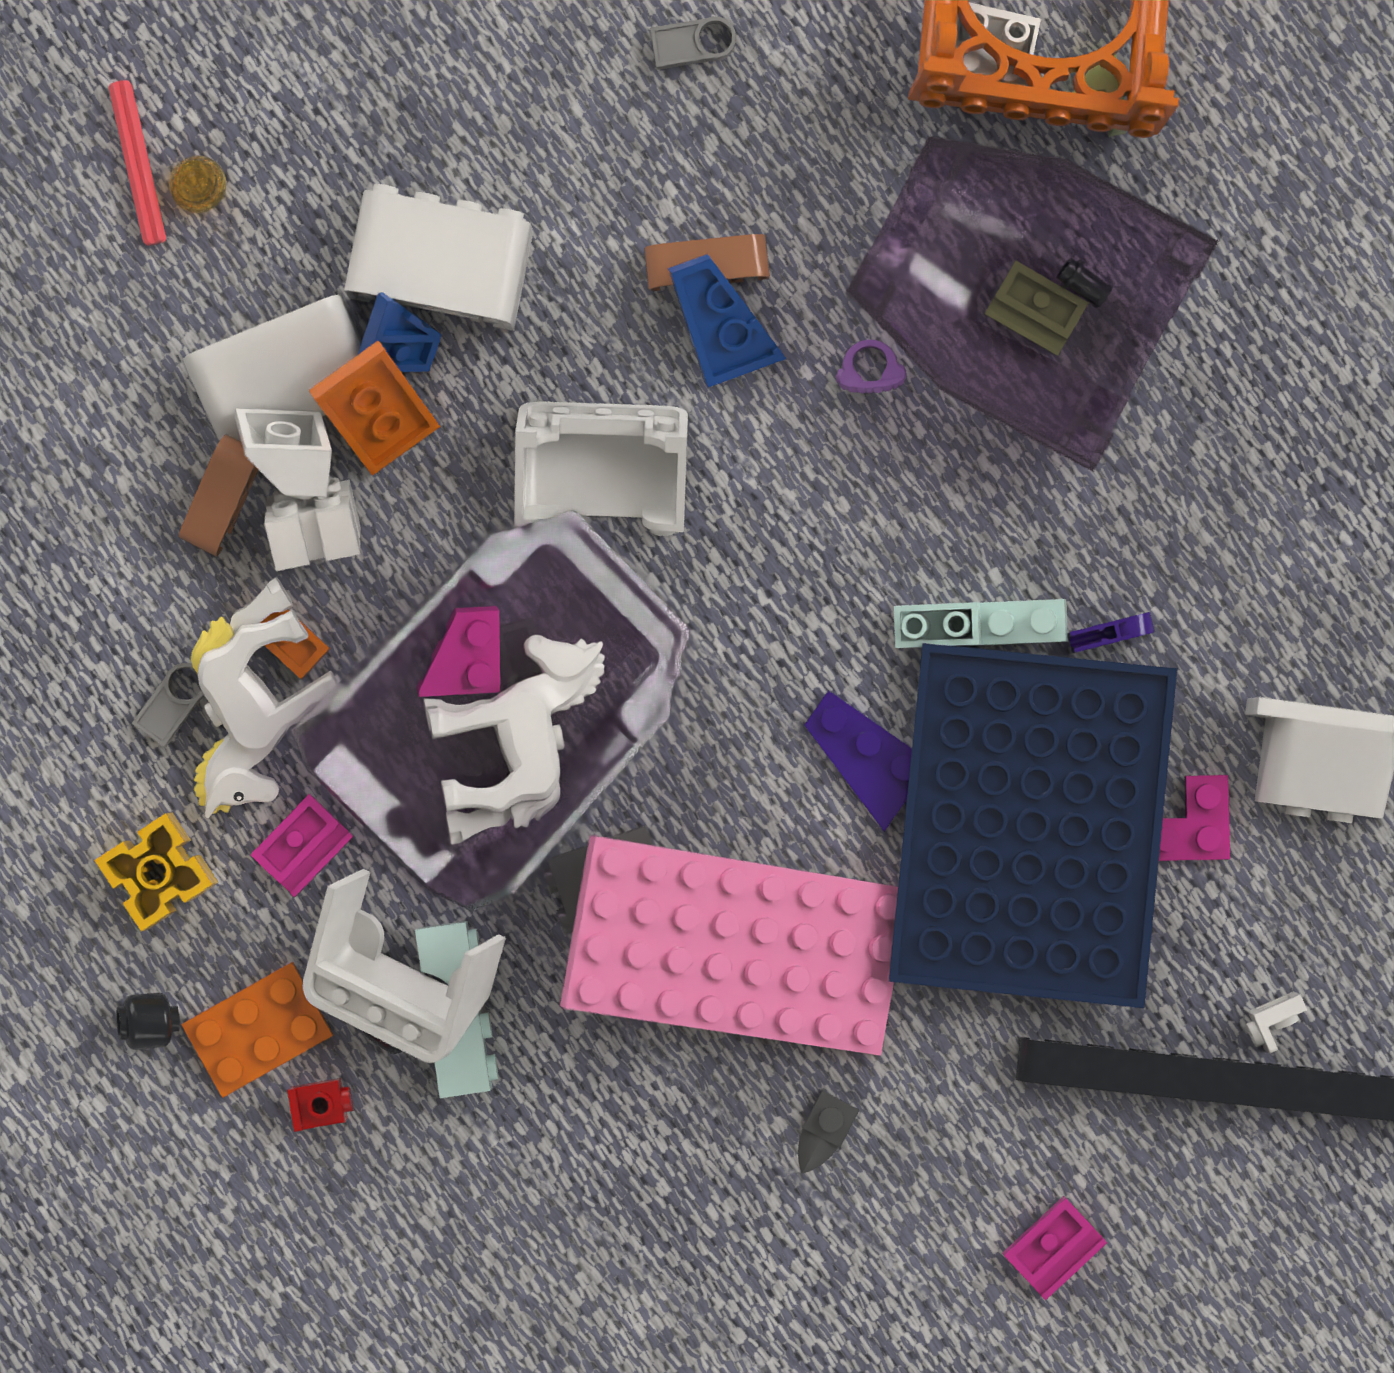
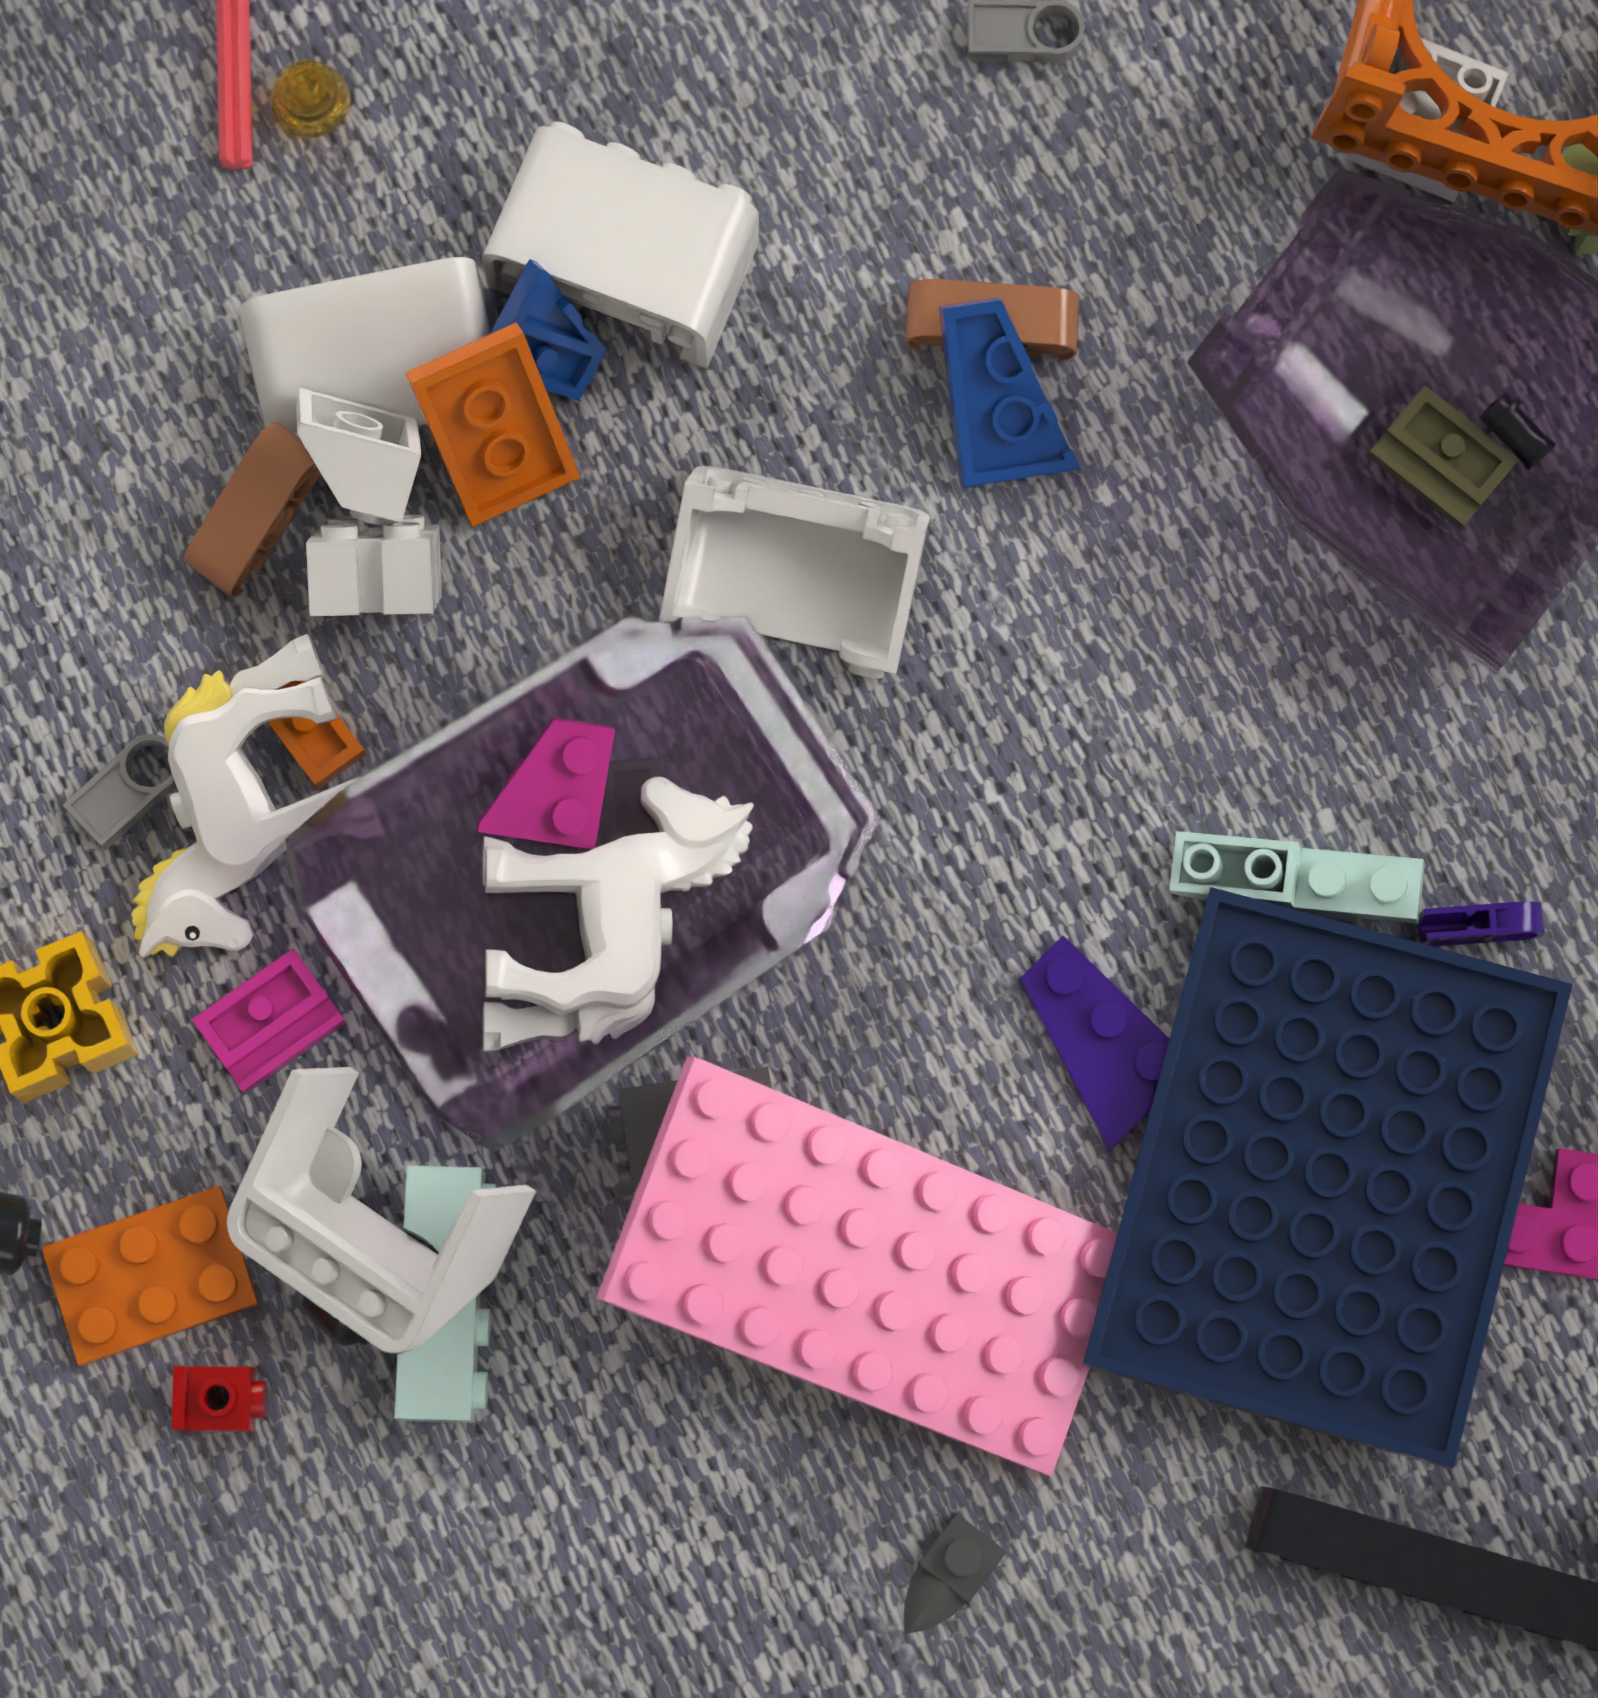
camera: 10 degrees right, 10 degrees down
(891, 378) = (1167, 513): medium lavender piece -> none

